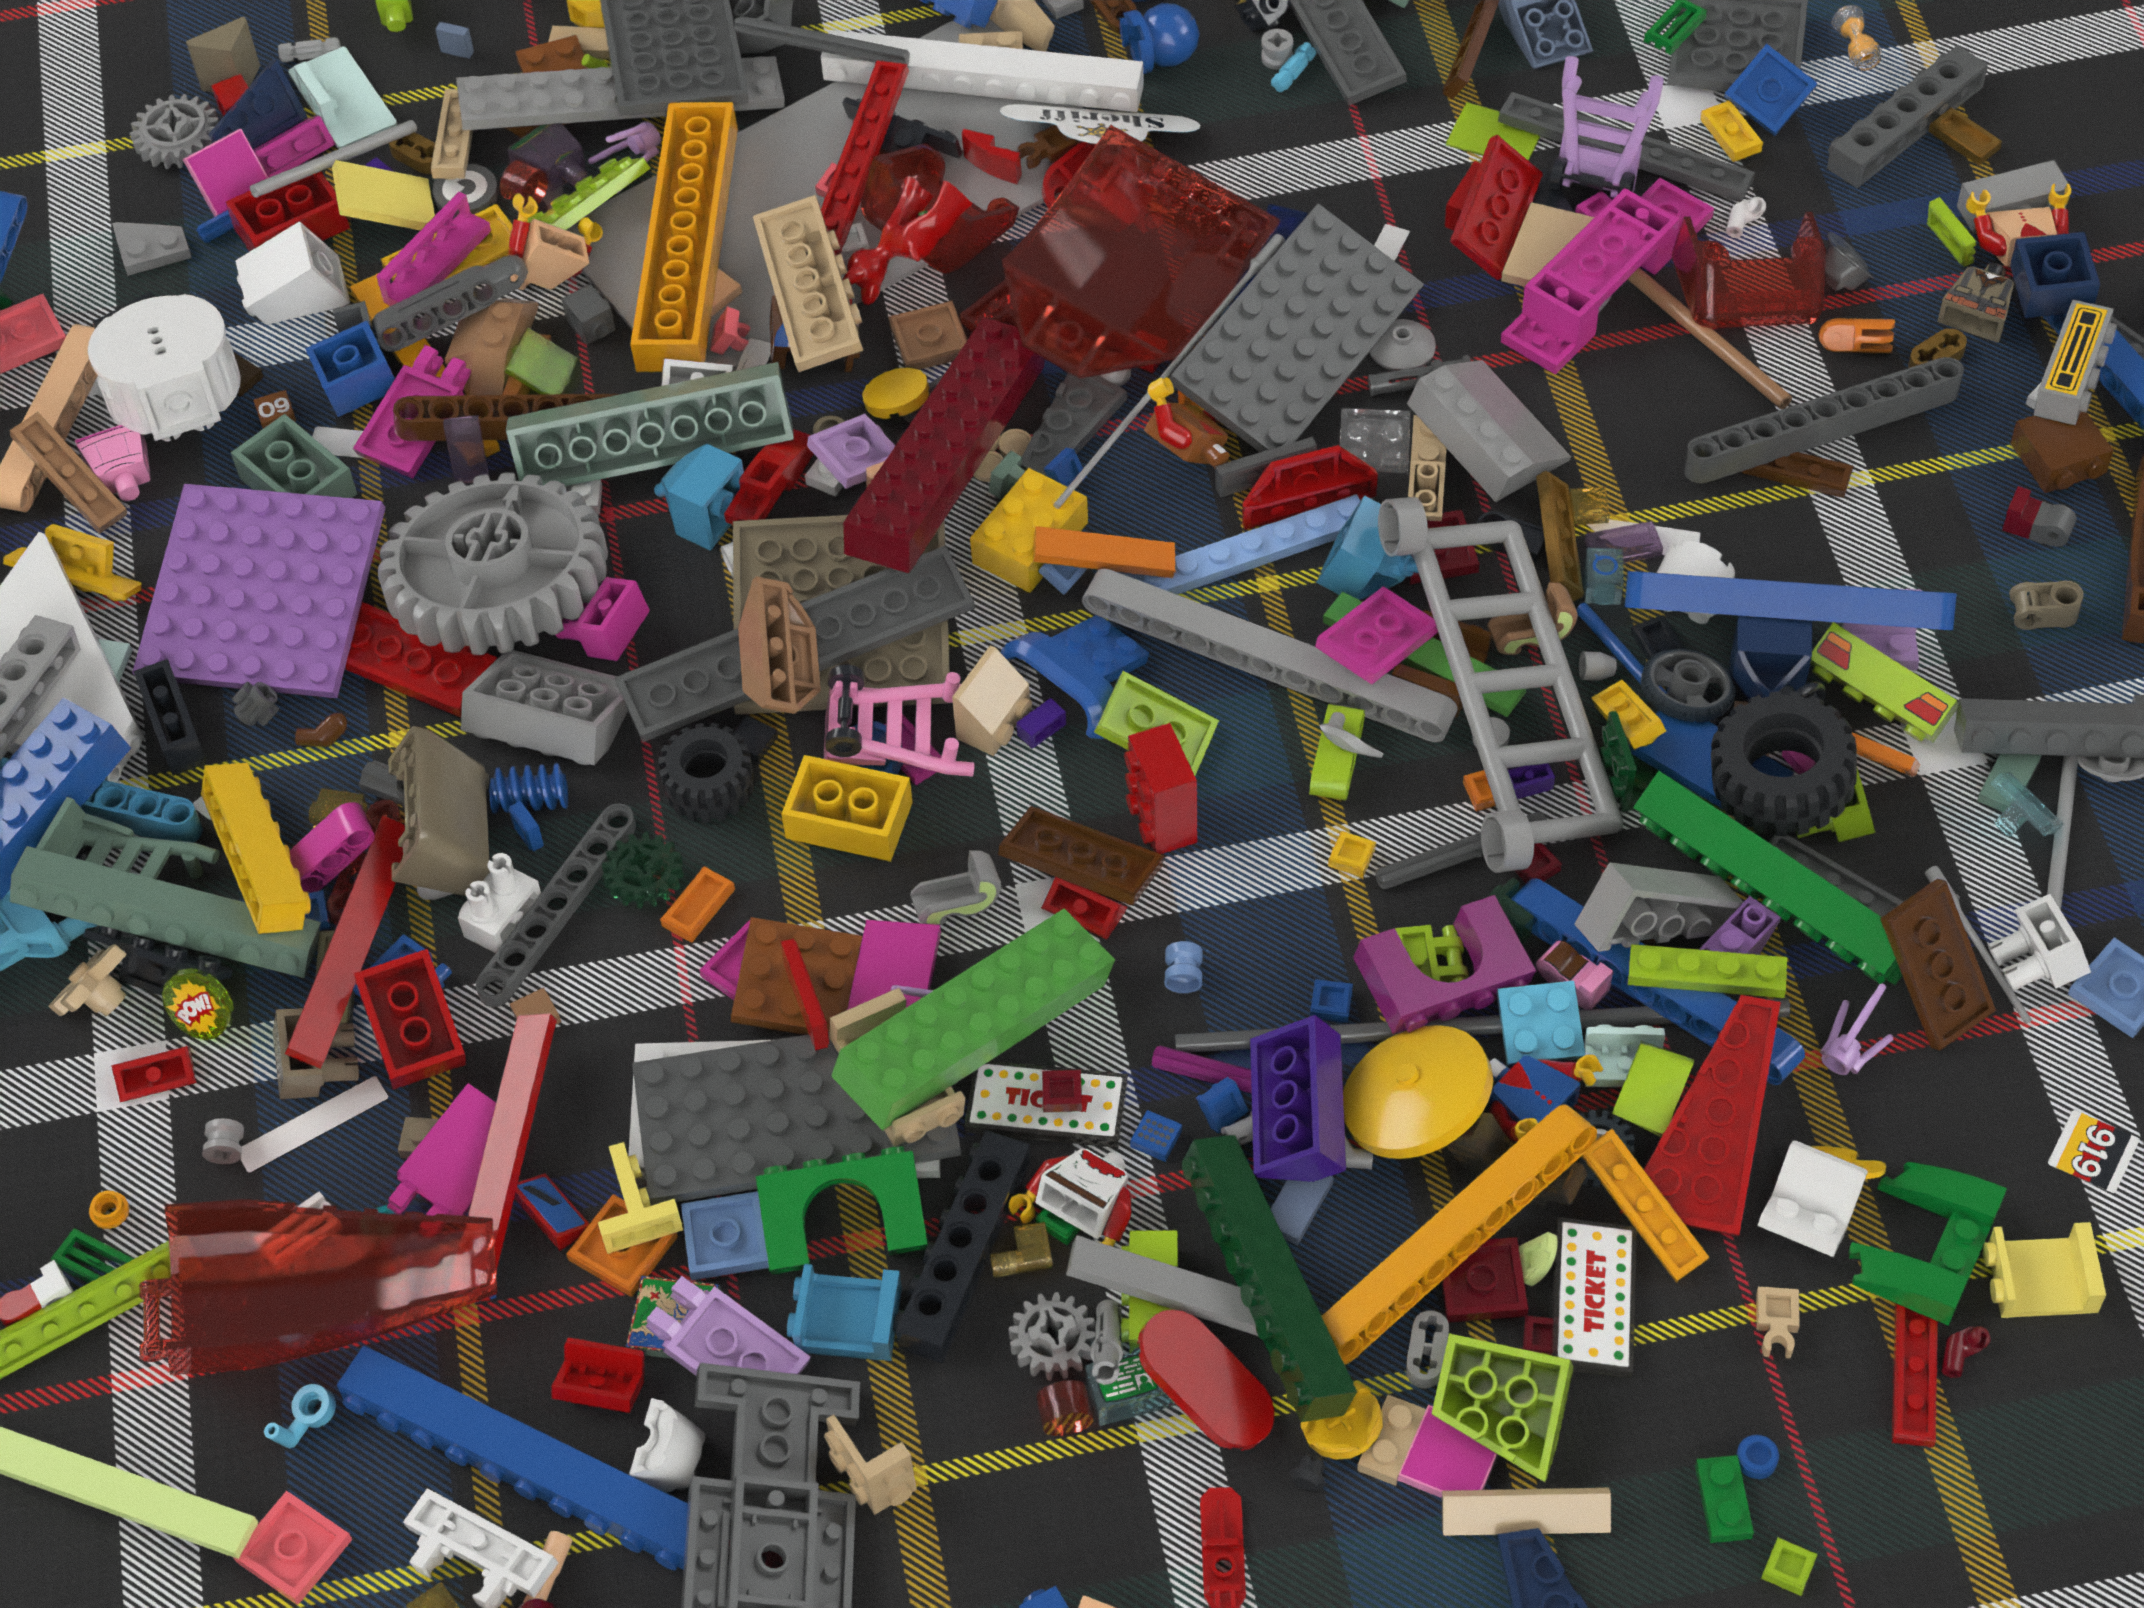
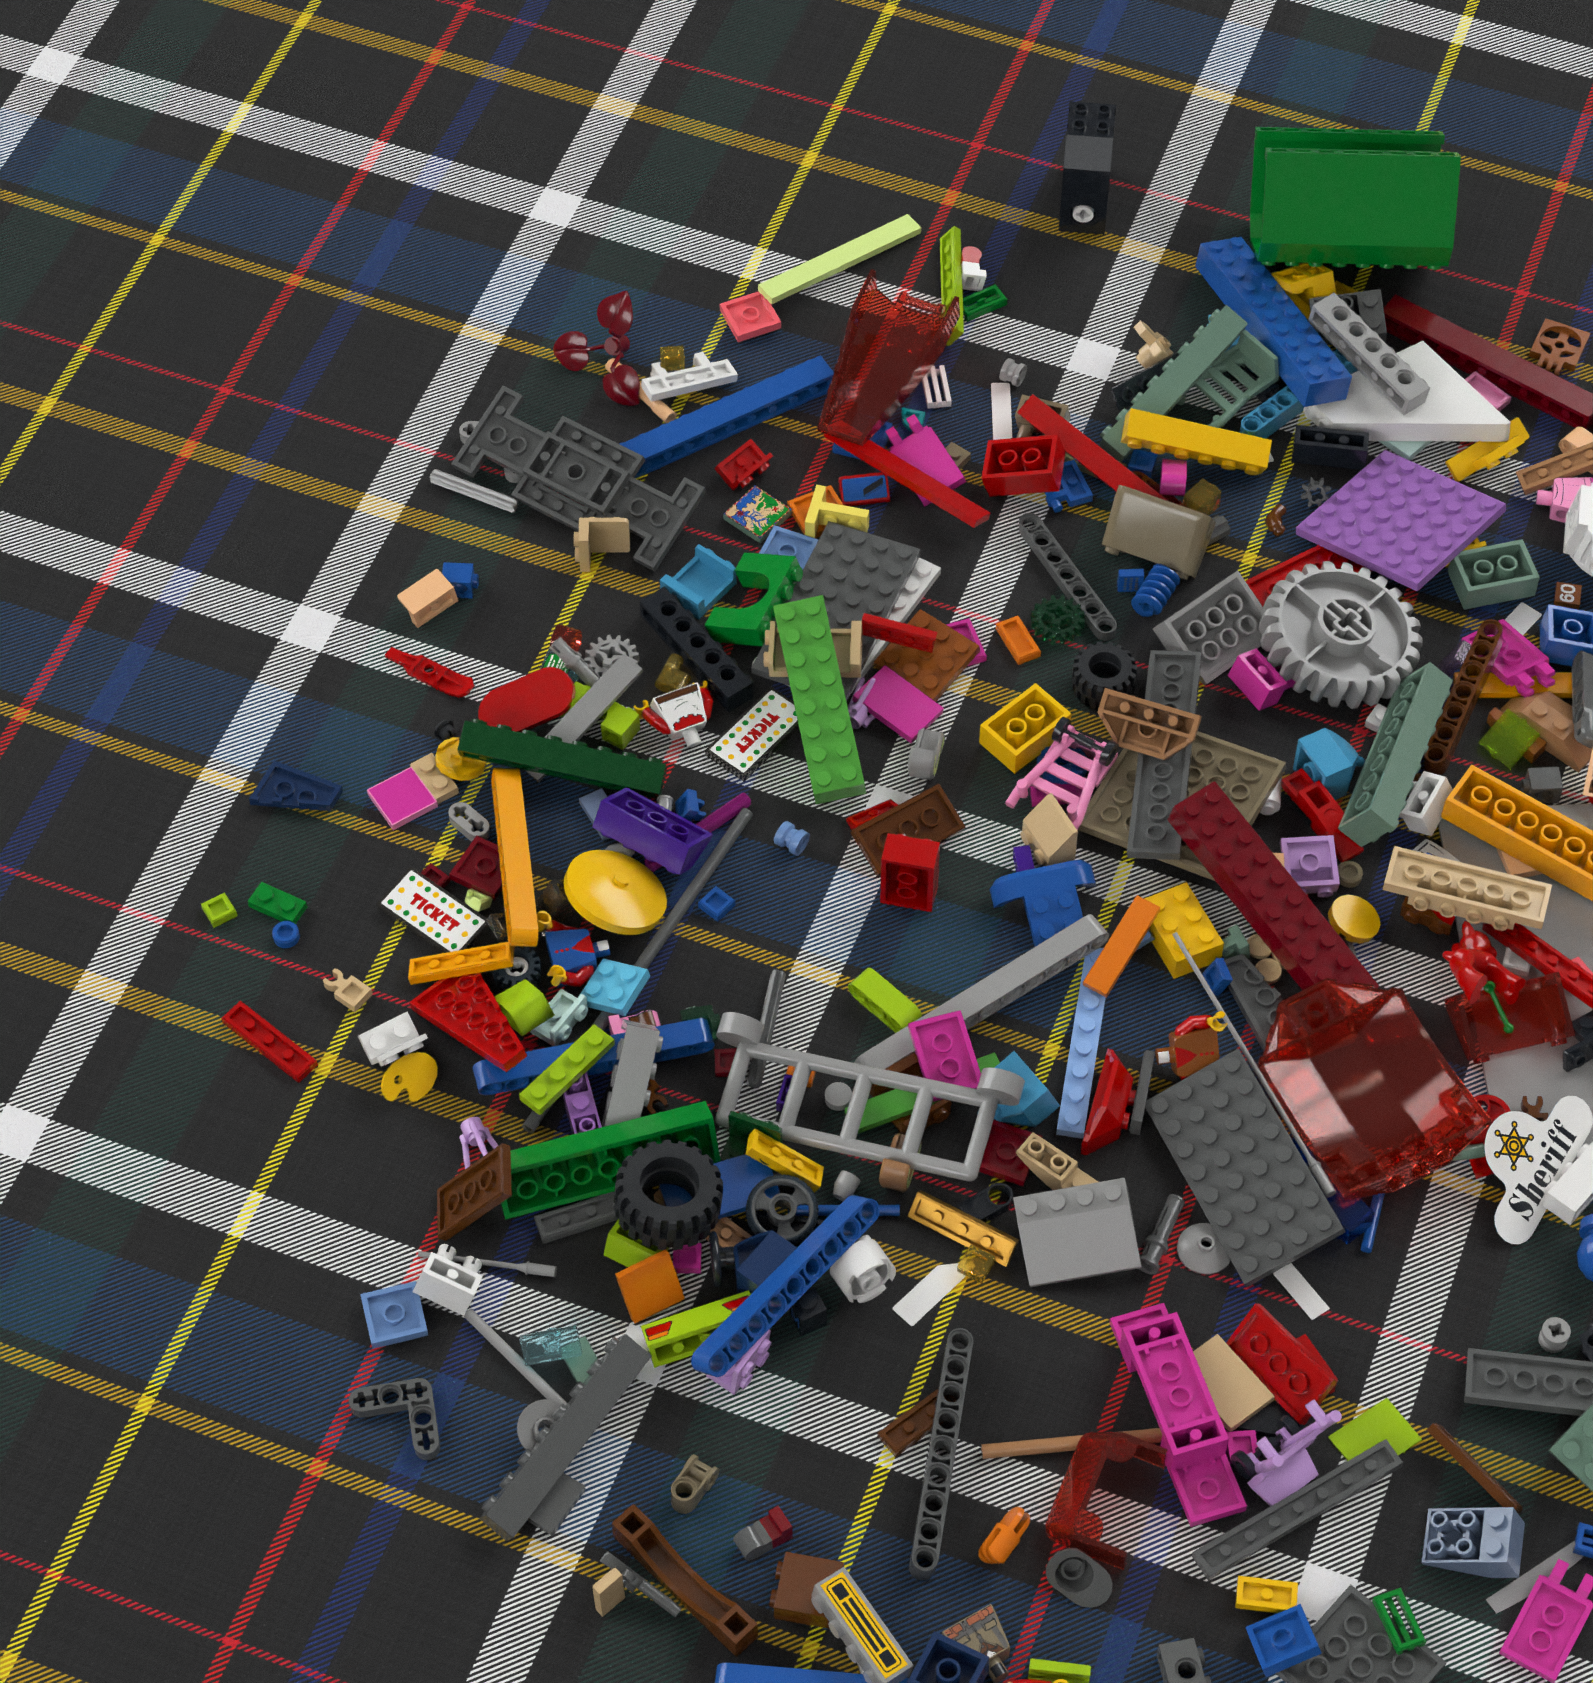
camera: 120 degrees right, 0 degrees up
(107, 1200) = (1008, 316): light orange plate -> none
(154, 1074) = (1086, 365): red slope -> none
(197, 1004) = (1104, 387): tile -> none
(302, 1409) = (818, 347): medium azure plate -> none
(497, 903) = (1080, 541): white brick -> none
(535, 1003) = (998, 536): medium nougat tile -> none
(671, 1451) = (677, 467): white cylinder -> none
(722, 1334) = (722, 520): lavender tile -> none
(728, 332) = (1467, 844): coral tile -> none
(928, 335) = (1402, 969): medium nougat tile -> none
(996, 161) = (1546, 1075): red slope -> none
(1062, 1091) = (751, 732): dark red plate -> none
(1140, 706) = (971, 913): lime tile -> none
(1156, 1135) = (696, 772): blue tile -> none
(1293, 67) = (1528, 1334): medium azure axle -> none
(1346, 740) = (888, 989): light grey bar -> none
(1352, 854) = (808, 972): yellow tile -> none
(1377, 437) = (1125, 1161): clear plate -> none
(1413, 999) = (675, 922): magenta arch -> none
(1424, 948) = (705, 956): lime plate -> none
(1504, 1399) = (408, 829): lime wedge -> none
(1524, 1509) = (343, 807): tan tile -> none
(1603, 576) = (910, 1231): clear light blue brick -> none
(1636, 540) = (932, 1268): clear purple tile -> none
(1744, 213) = (1179, 1546): white arm -> none
(1934, 346) = (950, 1585): pearl gold beam -> none
(1938, 1285) = (327, 1128): green wedge -> none
(1962, 1345) = (261, 1068): dark red arm -> none
(2045, 1274) = (266, 1138): light yellow panel -> none
(2093, 1151) = (314, 1227): sticker -> none

